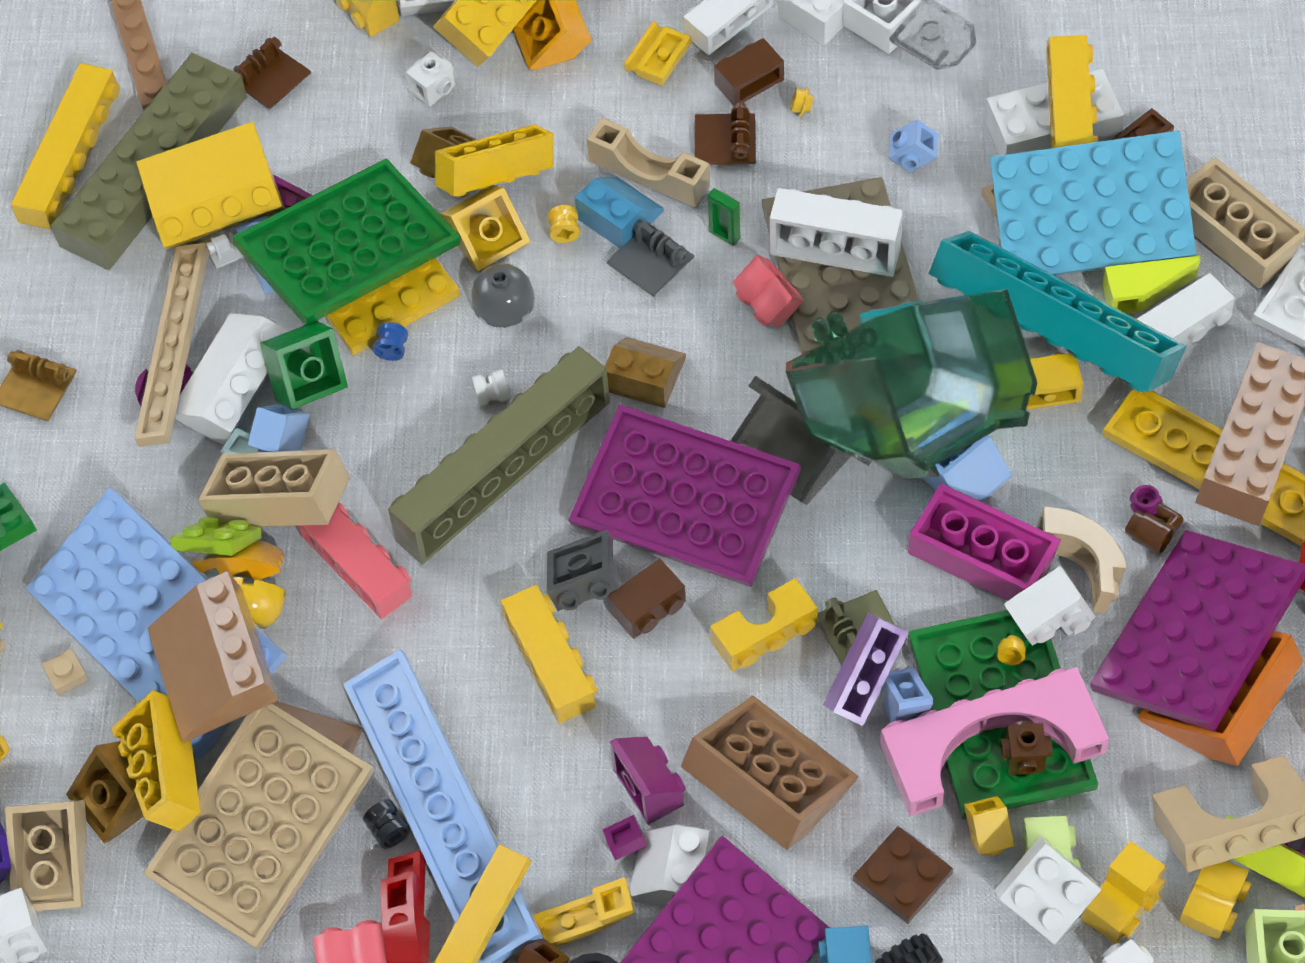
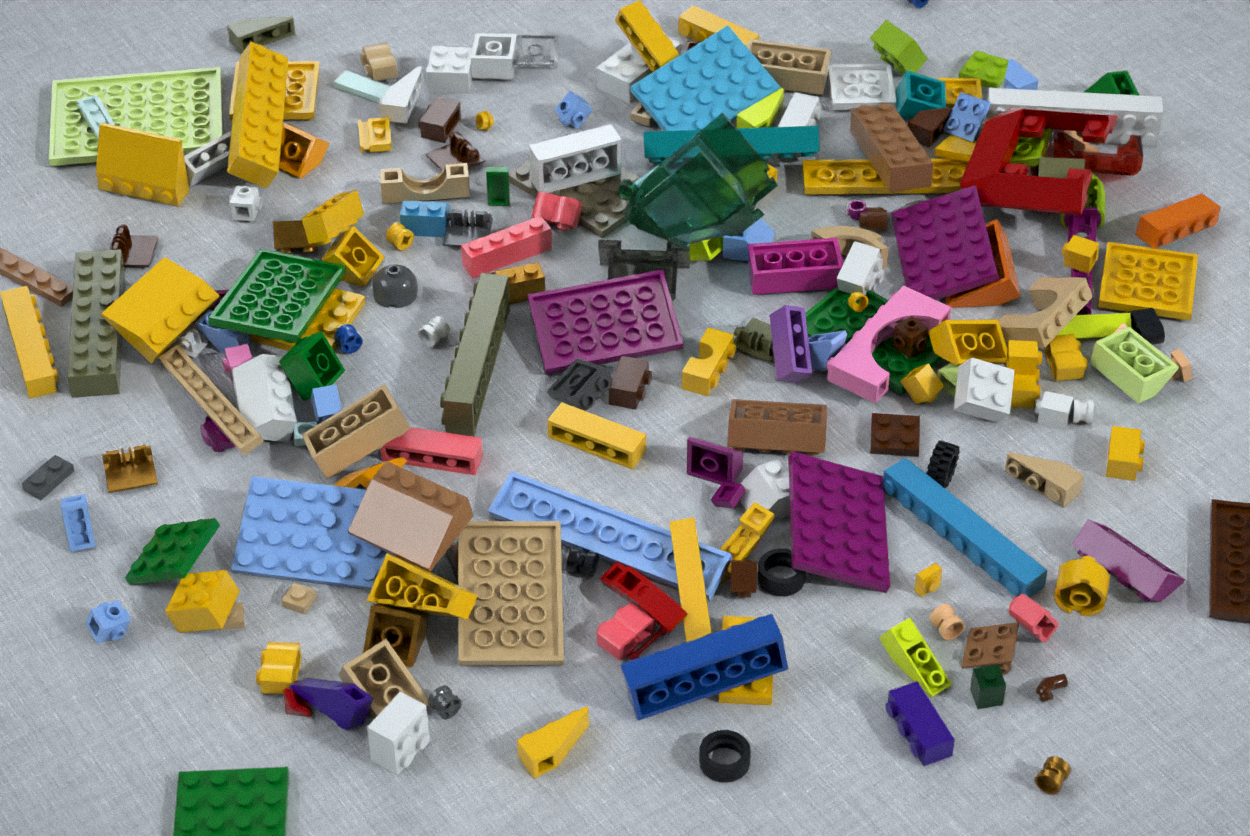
camera: 40 degrees left, 15 degrees down
(90, 918) = (445, 702): none -> dark grey wheel
(216, 537) = (352, 465): lime plate -> none
(251, 300) = (236, 356): none -> bright pink brick
(669, 311) = (506, 246): none -> coral brick
(1092, 808) = (965, 339): none -> yellow slope
(1197, 116) = (700, 25): none -> yellow brick

